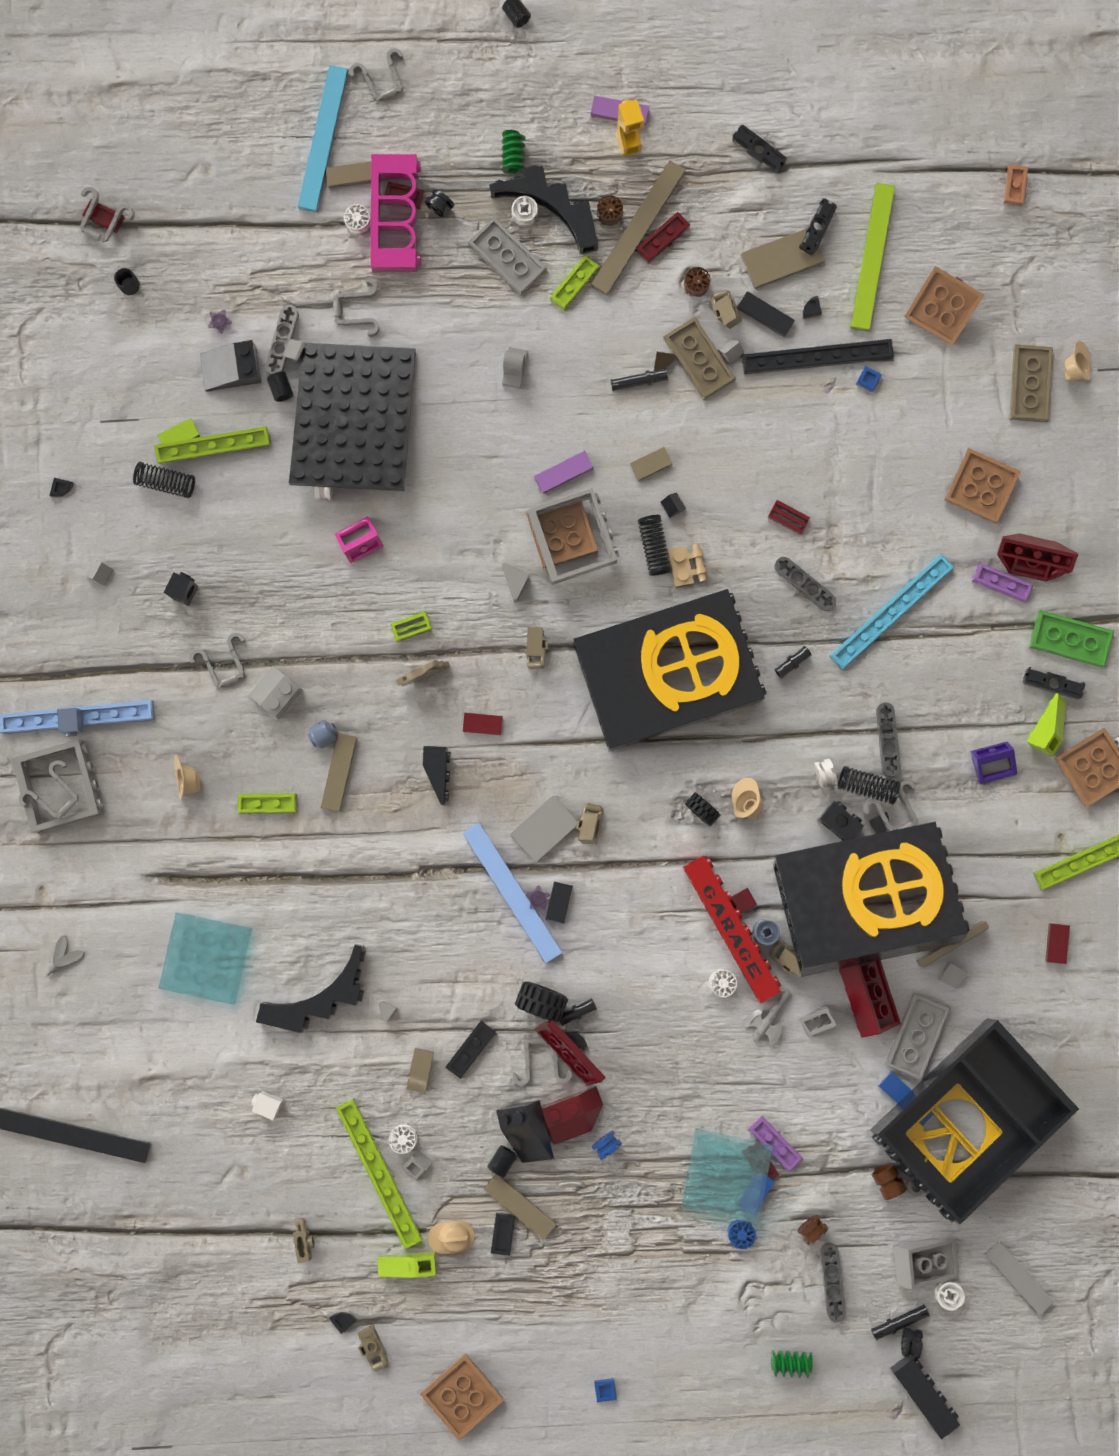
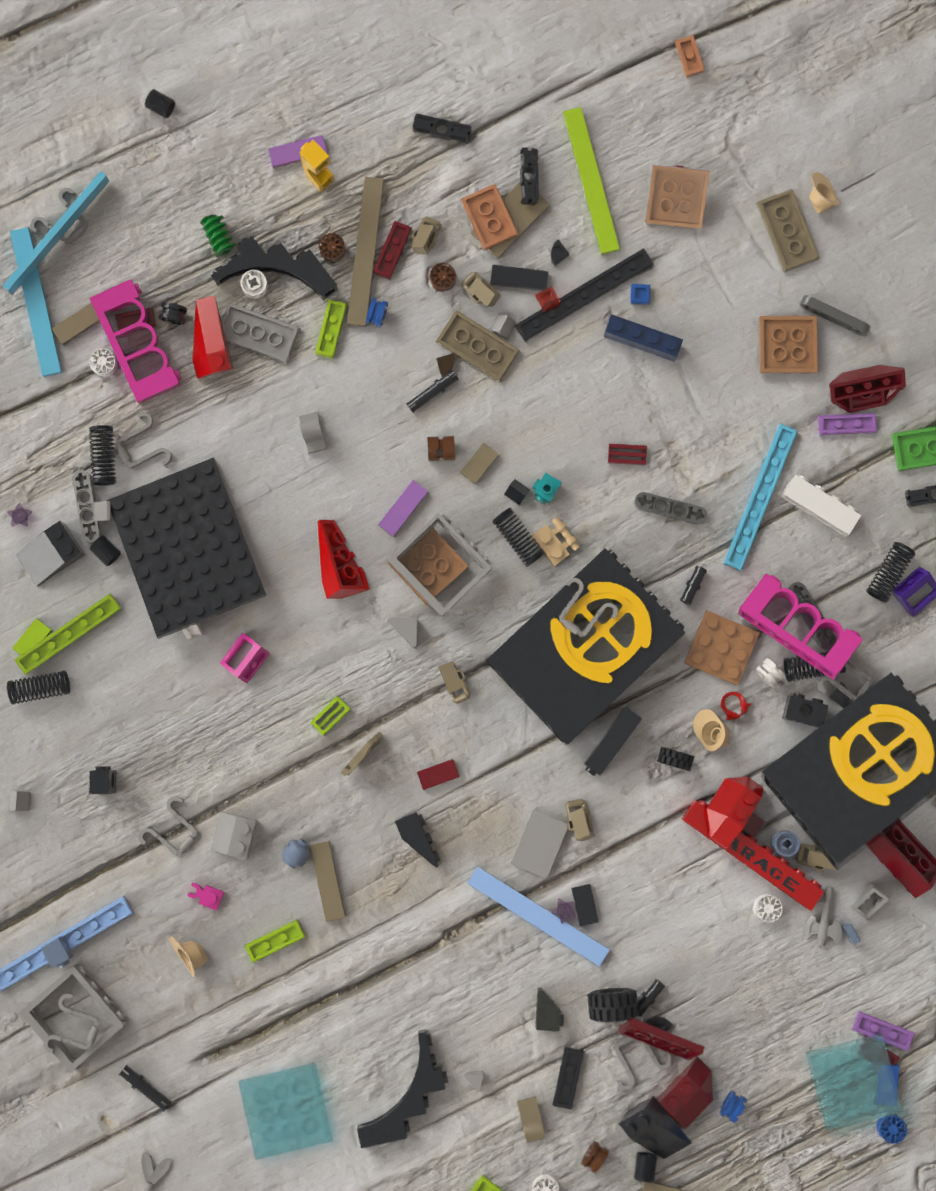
camera: 30 degrees left, 0 degrees up
(87, 871) = (145, 1088): none -> black pin
(227, 736) = (208, 896): none -> dark pink plate
(307, 320) = (102, 431): none -> black piece
(369, 84) = (56, 233): none -> medium azure tile
(460, 245) = (209, 343): none -> red wedge
(465, 1130) = (595, 1157): none -> reddish brown wheel
(480, 502) = (339, 570): none -> red wedge
(480, 982) = (547, 1013): none -> pearl dark grey slope
(622, 285) = (376, 312): none -> blue wheel
(629, 433) = (447, 451): none -> reddish brown wheel
(652, 767) = (612, 741): none -> black slope
(663, 643) = (572, 627): none -> light grey piece
(699, 237) = (425, 235): none -> dark tan piece
(700, 513) = (546, 488): none -> teal brick
(732, 877) = (732, 808): none -> red wedge
(764, 247) = (489, 217): none -> nougat tile
(782, 344) = (547, 299): none -> clear red tile
(787, 792) = (743, 704): none -> red piece
(787, 1041) = (851, 933): none -> sand blue tile
(792, 730) = (721, 647): none -> medium nougat plate
(852, 418) = (643, 338): none -> dark blue brick
(858, 698) = (770, 589): none -> dark pink fence
(943, 644) = (821, 505): none -> white brick
(961, 751) = (884, 596): none -> black piece
(1037, 479) = (834, 315): none -> dark grey beam

